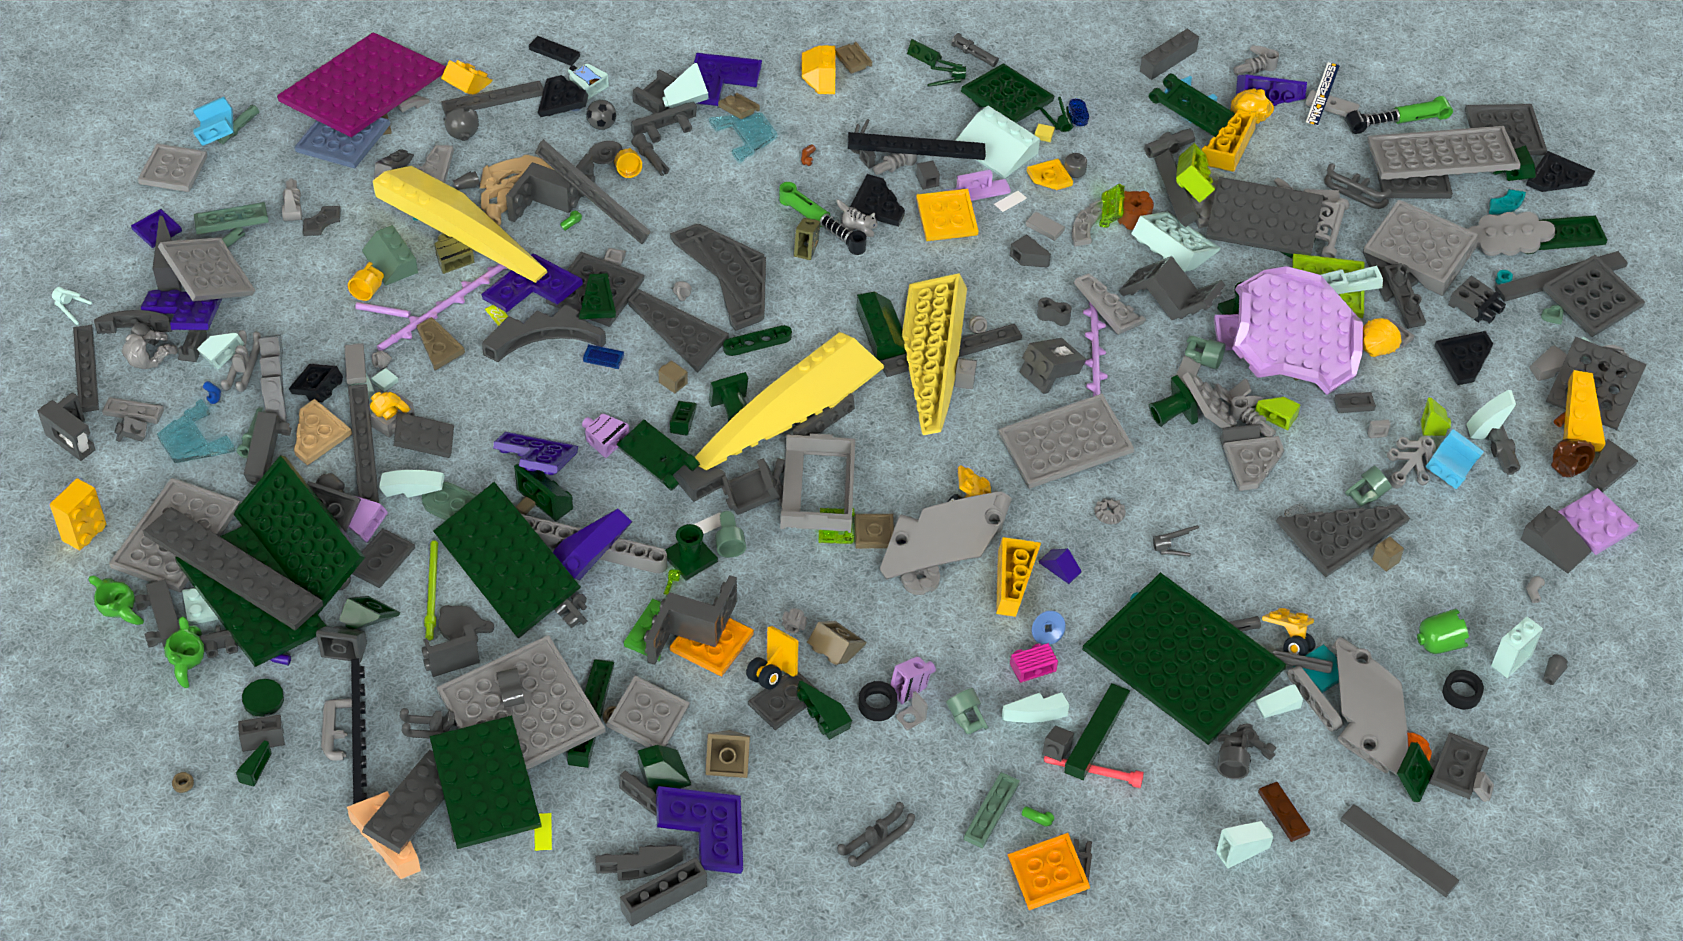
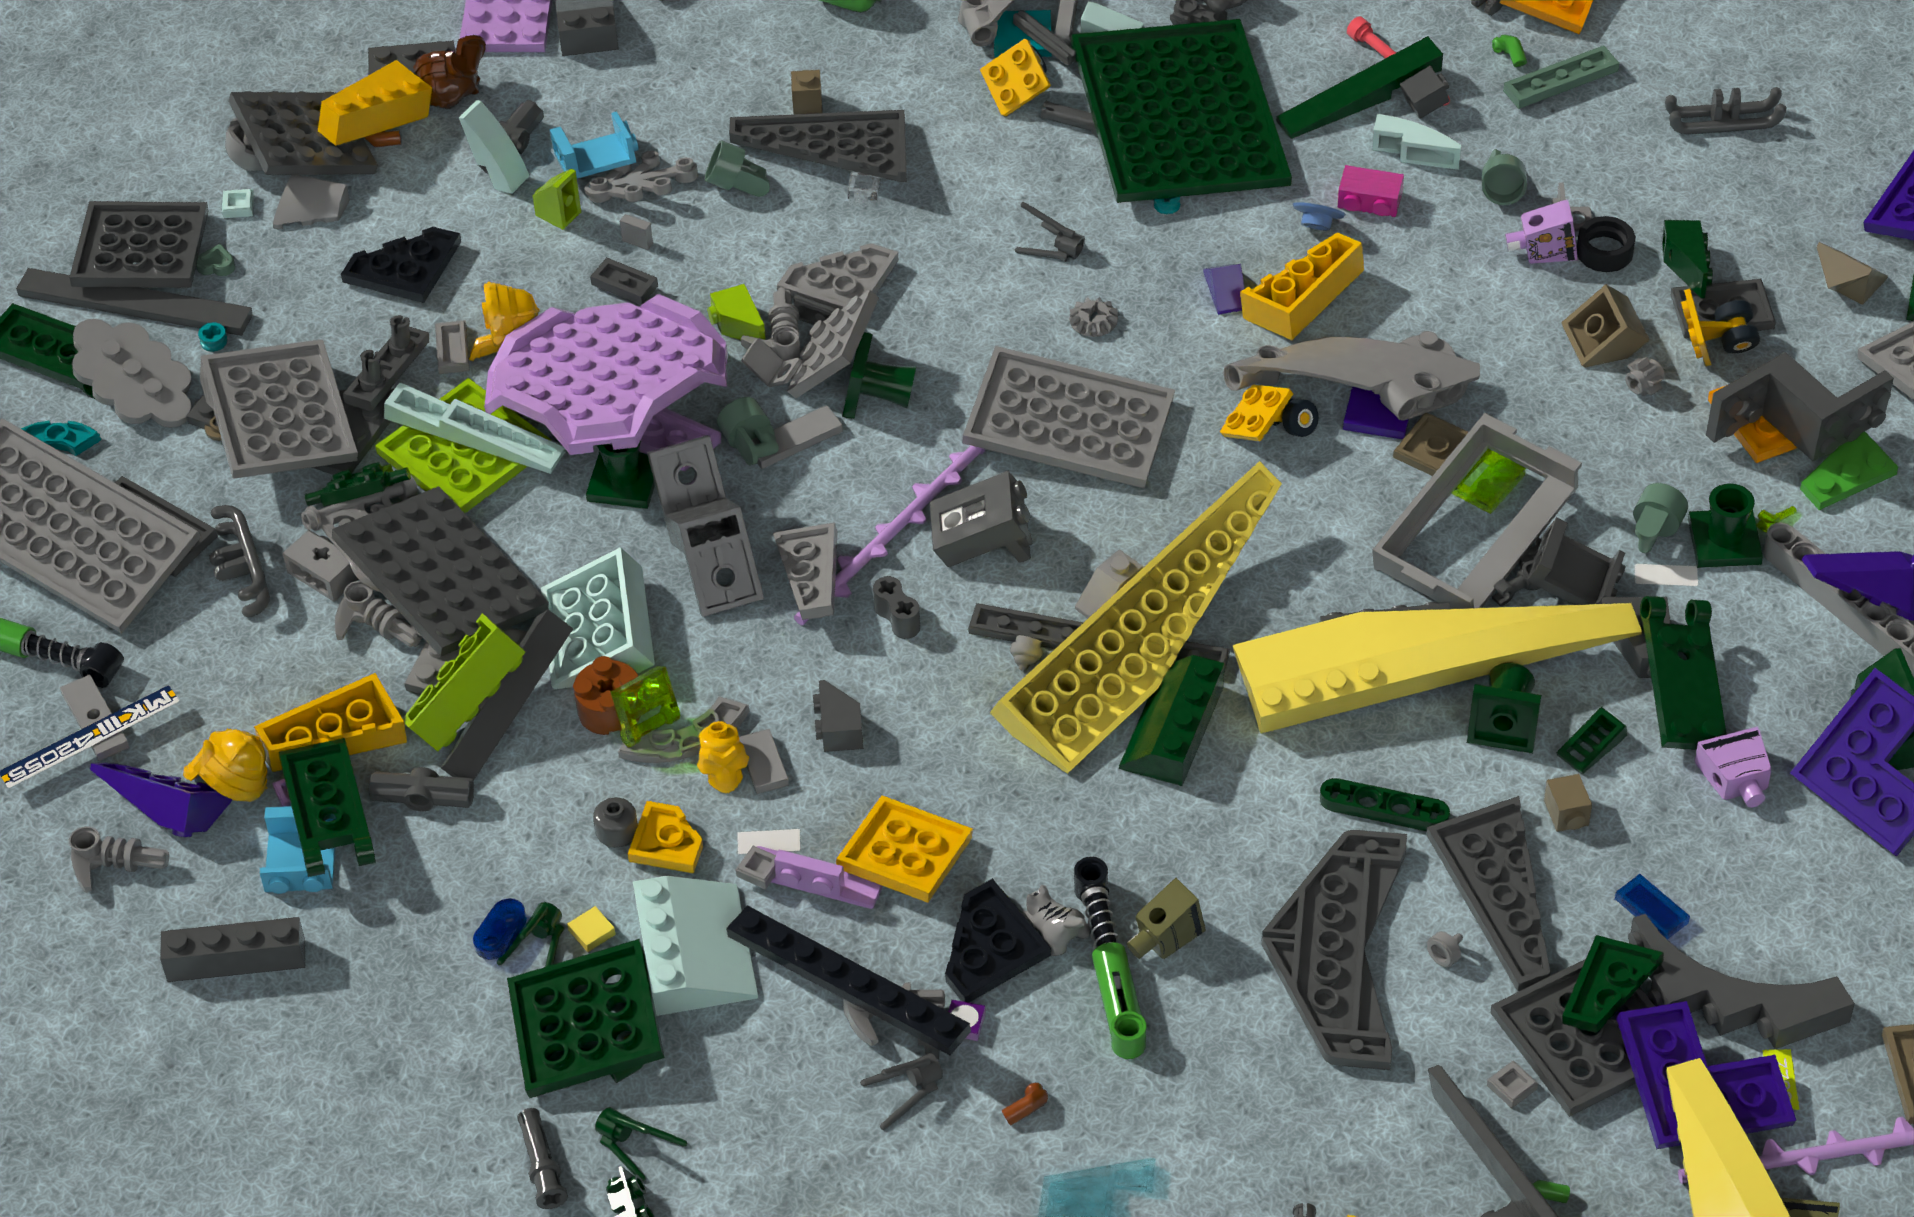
camera: 140 degrees left, 0 degrees up
(860, 171) = (971, 1013): none -> tile
(927, 174) = (865, 941): dark grey brick -> none
(1000, 179) = (757, 867): none -> light grey tile
(1062, 211) = (722, 756): none -> yellow head
(1345, 234) = (351, 486): none -> dark green plate
(1477, 300) = (295, 309): dark grey hips -> none

